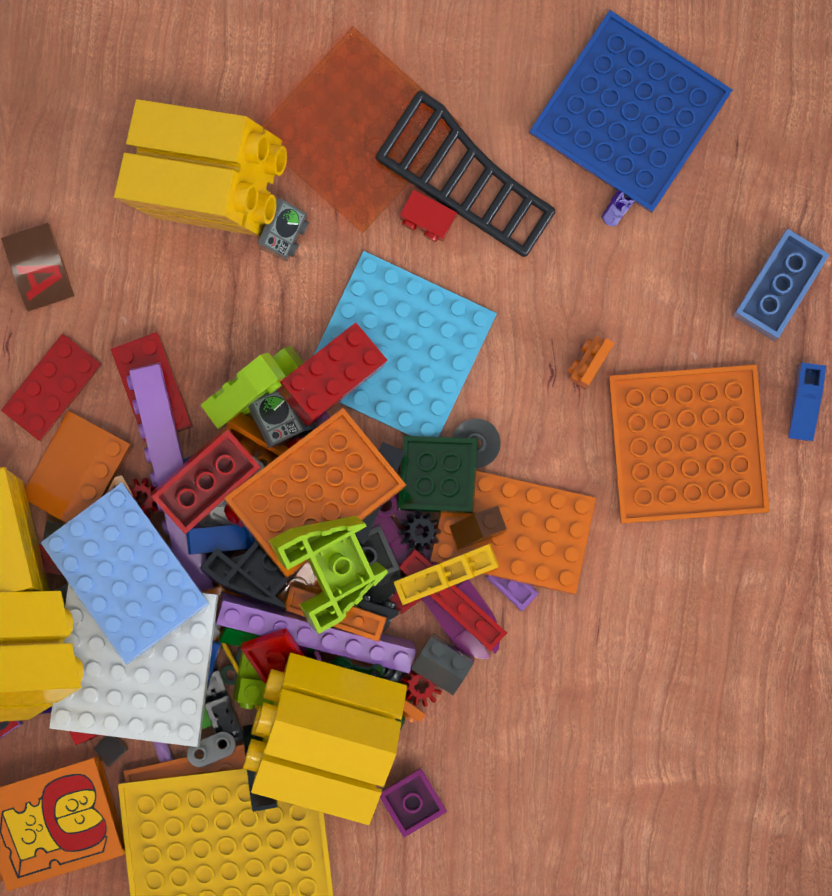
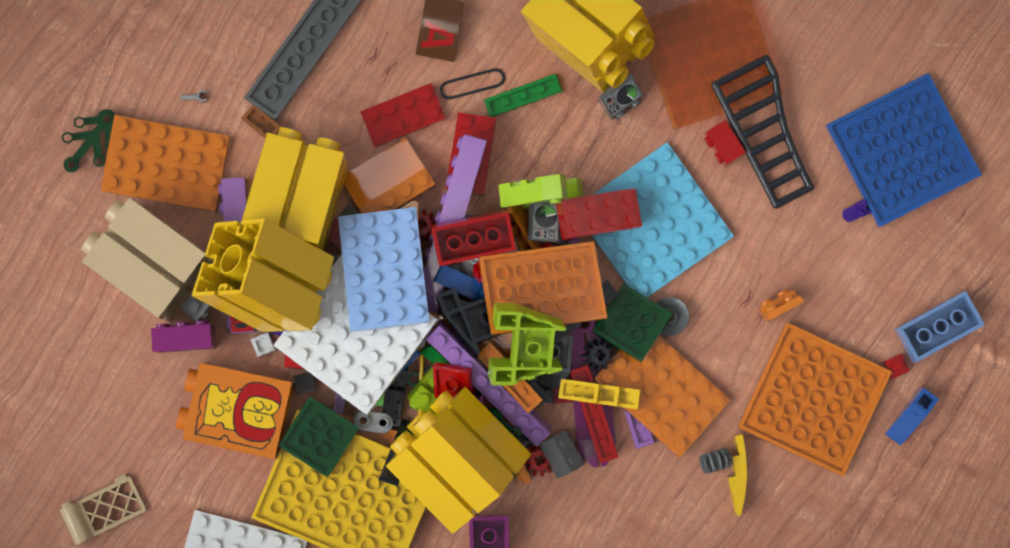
camera: 25 degrees right, 0 degrees up
(39, 732) = (263, 344): none -> white tile
(101, 301) = (474, 91): none -> black piece
(159, 801) = (318, 436): none -> dark green plate
(173, 289) = (523, 95): none -> green tile
(478, 527) = (639, 375): reddish brown slope -> none
(617, 574) = (715, 460): none -> dark grey gear
(655, 584) = (737, 483): none -> yellow slope
(758, 354) = (896, 365): none -> red plate

